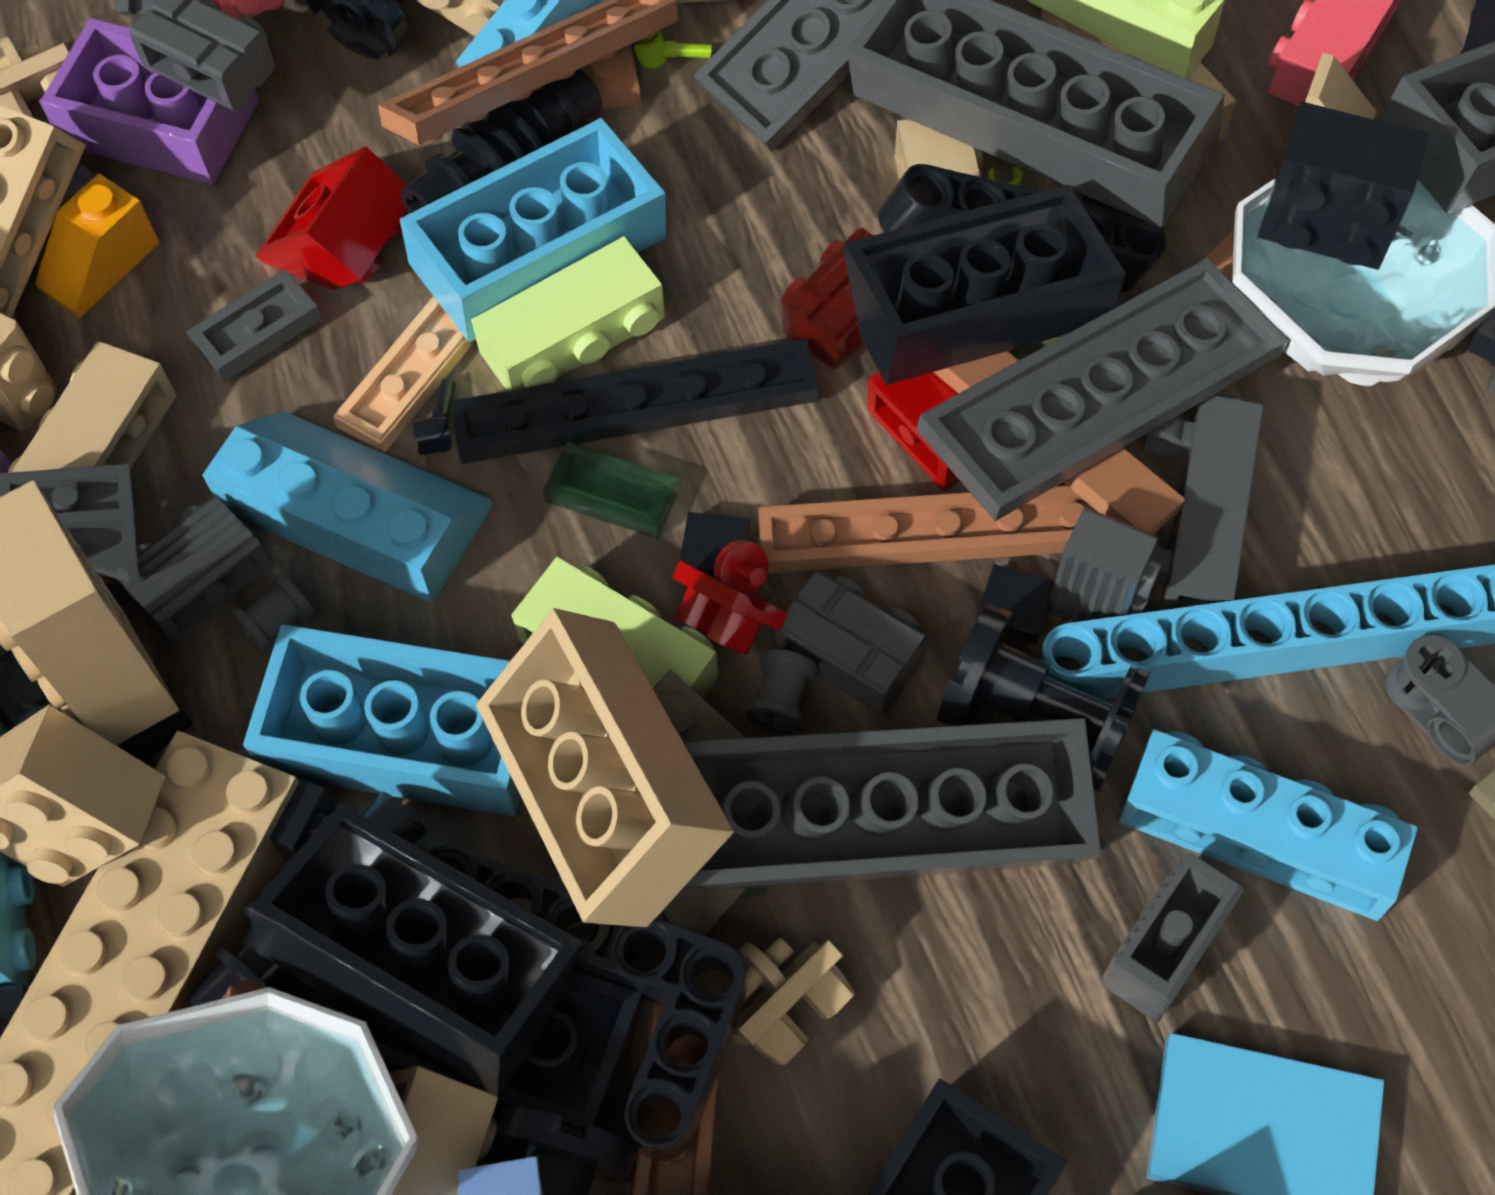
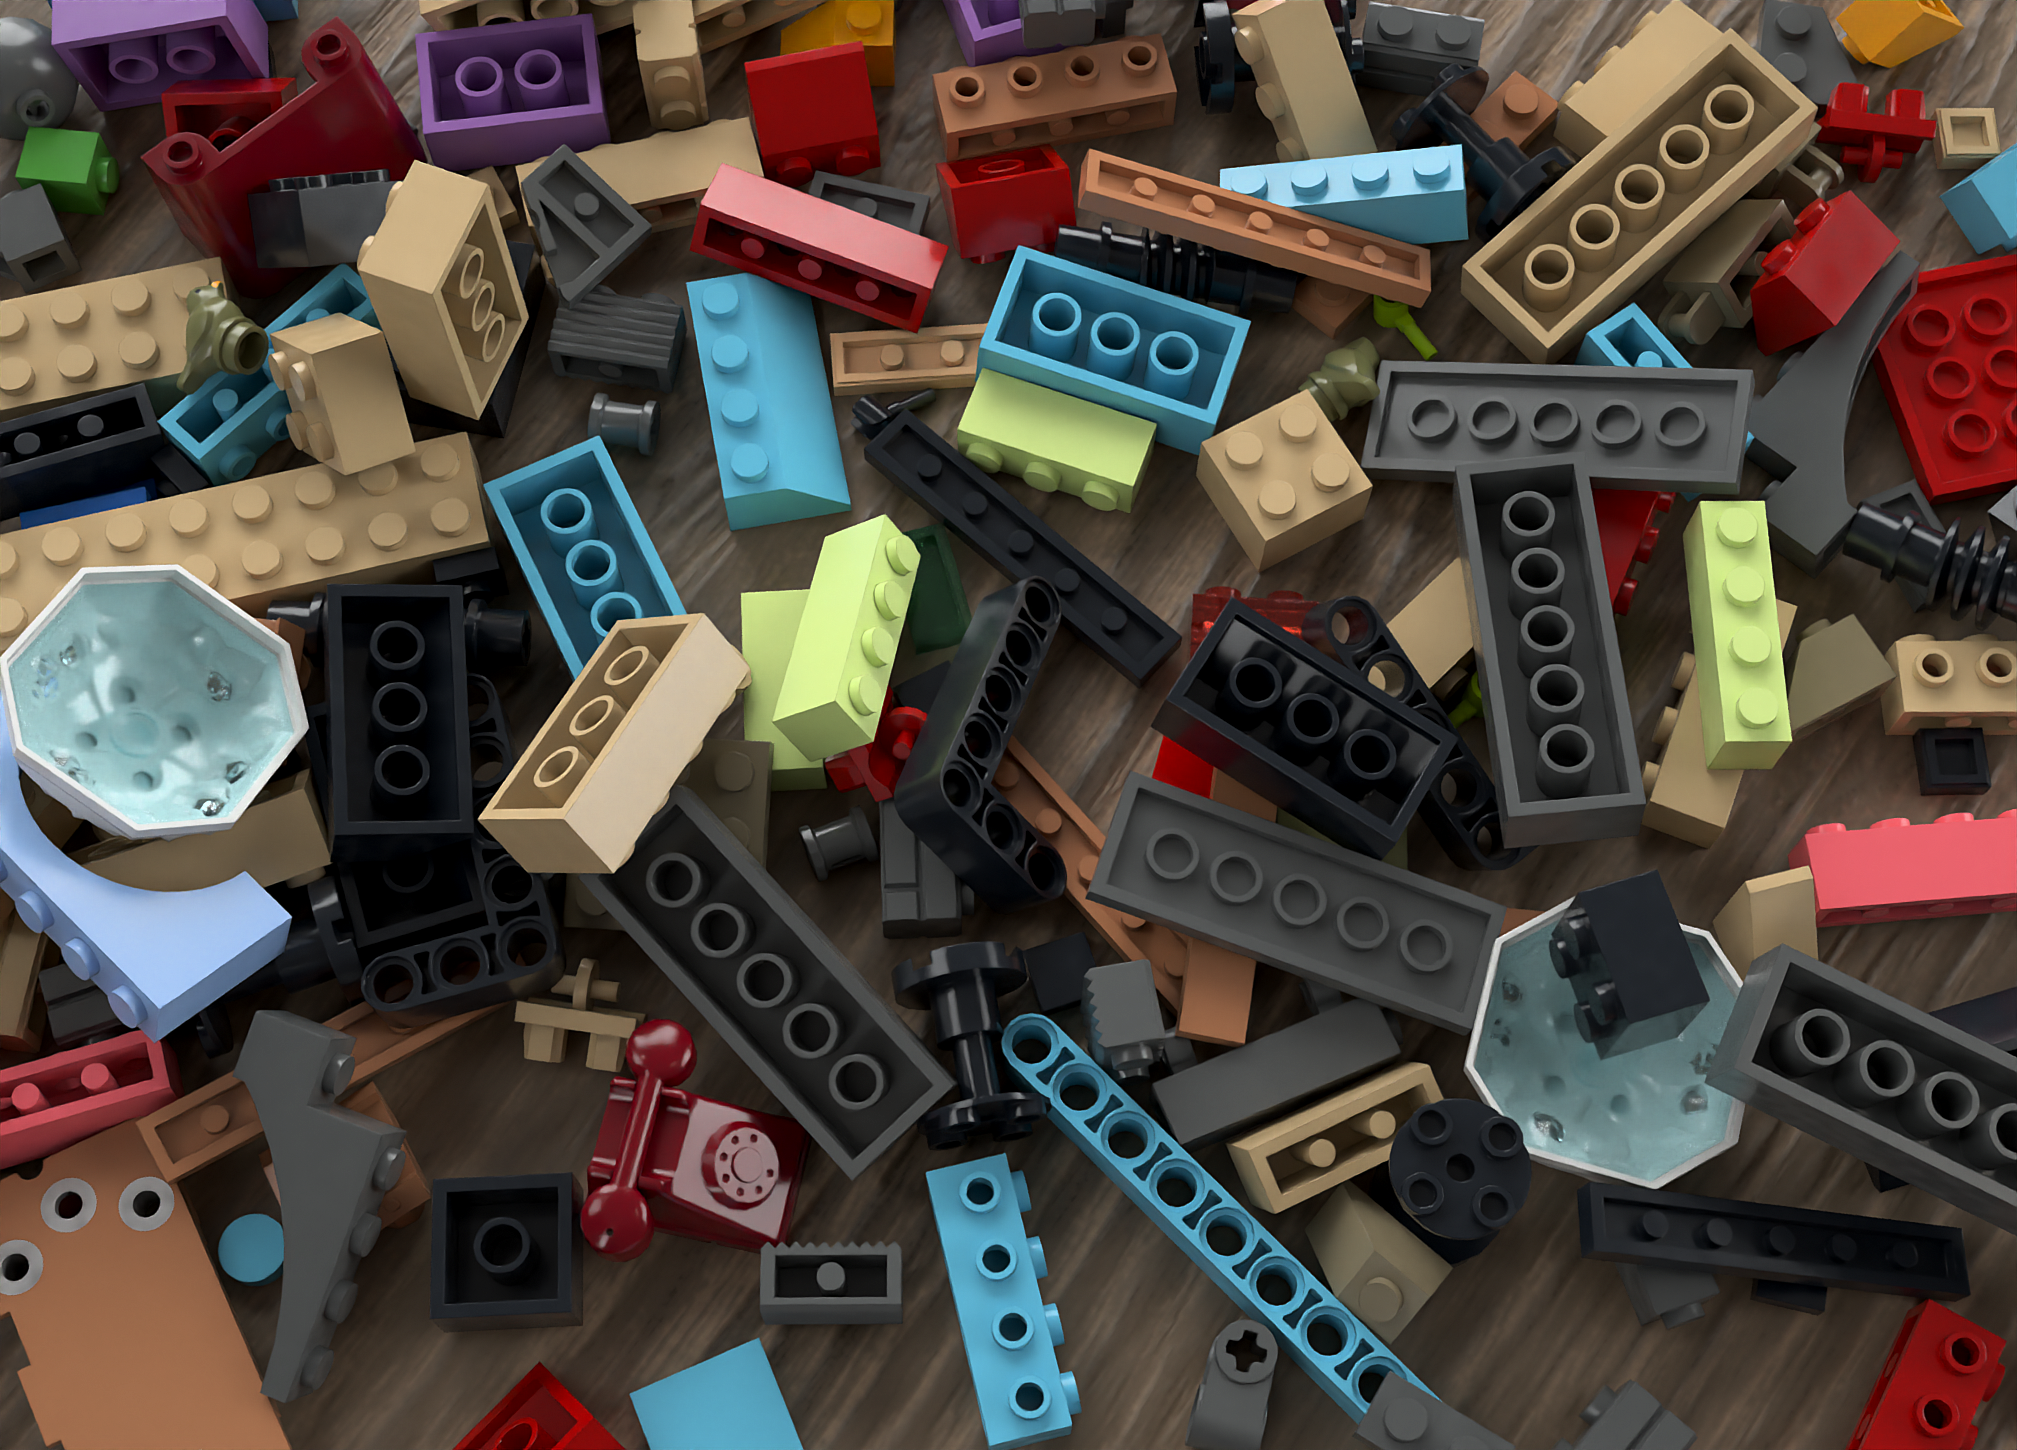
camera: 50 degrees right, 5 degrees up
(140, 290) = (813, 114): none -> red slope
(260, 365) = (818, 247): none -> red brick
(281, 139) = (1055, 97): none -> nougat brick
(630, 553) = (847, 639): none -> yellowish green brick
(690, 110) = (1345, 379): none -> olive animal
(735, 194) = (1283, 480): none -> tan brick
(795, 527) = (949, 773): none -> black beam
(977, 990) = (687, 1159): none -> dark red piece
(1298, 492) = (1330, 1136): none -> tan brick
(1408, 414) = (1454, 1176): none -> black piece
(1413, 534) = (1373, 1261): none -> dark tan slope

